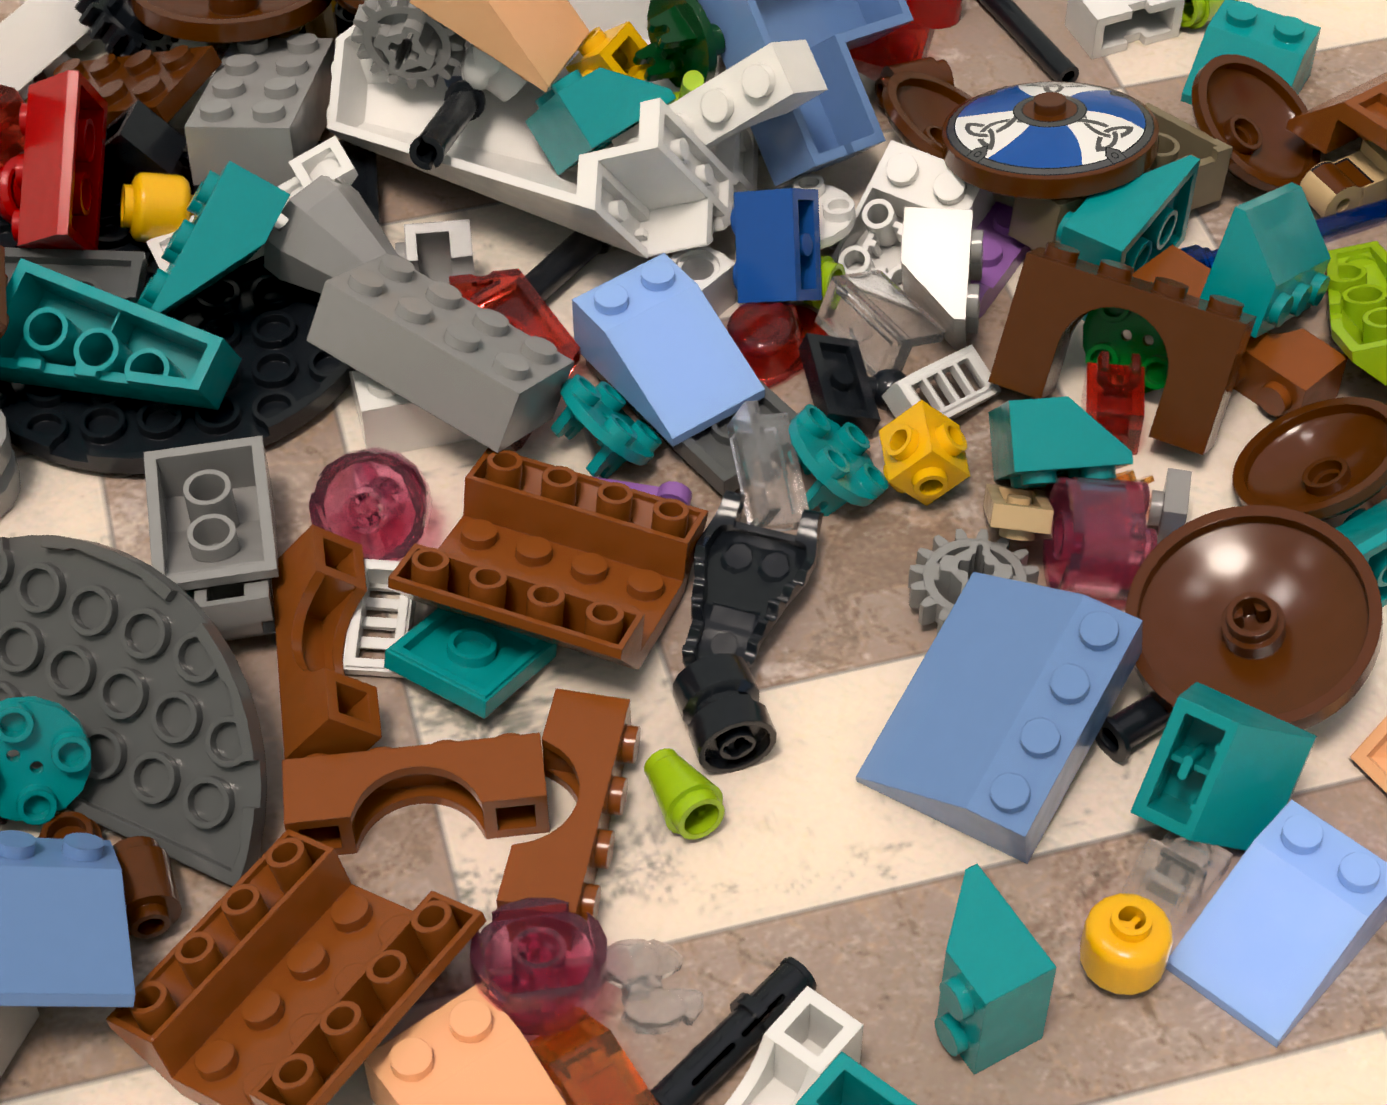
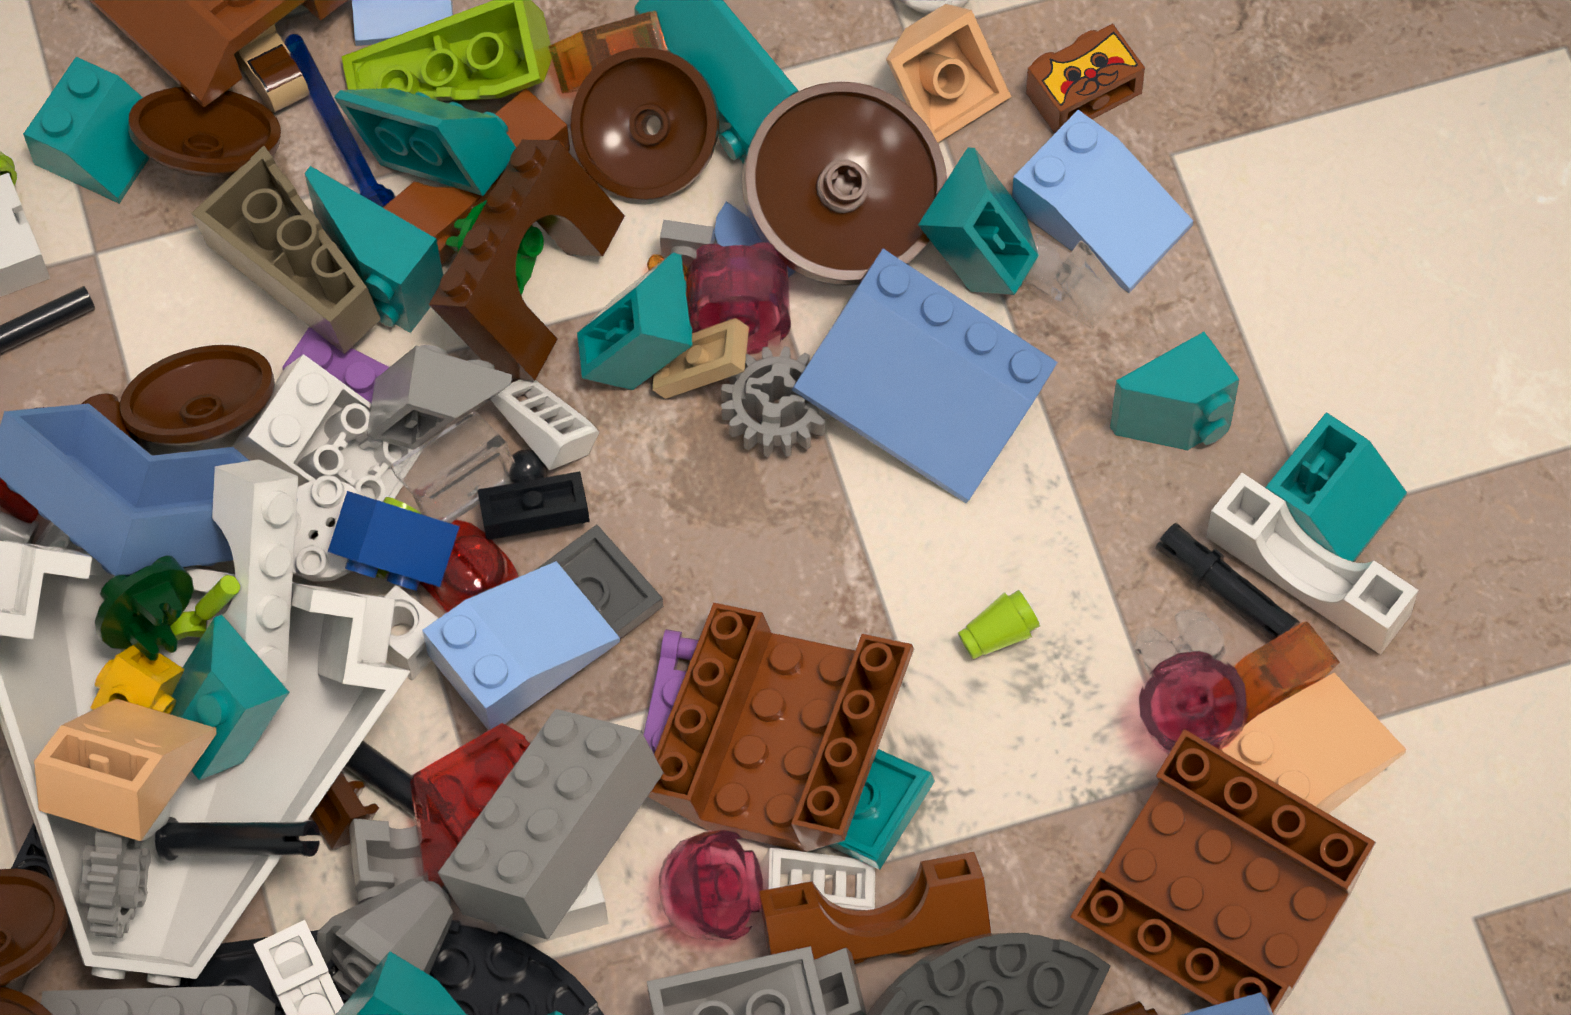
camera: 90 degrees left, 15 degrees up
(488, 779) = (1003, 766): dark orange arch -> none
(507, 243) = (339, 809): none -> reddish brown tile
(585, 753) = (967, 695): dark orange arch -> none
(602, 414) = (603, 690): teal plate -> none
(724, 713) = (925, 591): black wheel -> none
(745, 580) = (783, 577): black animal -> none
(767, 468) = (658, 559): clear panel -> none
(836, 460) = (639, 504): teal plate -> none
(924, 453) = (633, 431): yellow brick -> none
(1050, 140) = (265, 293): dish -> none
(1116, 397) = (568, 281): clear red brick -> none
(1126, 944) = (1133, 306): yellow head -> none

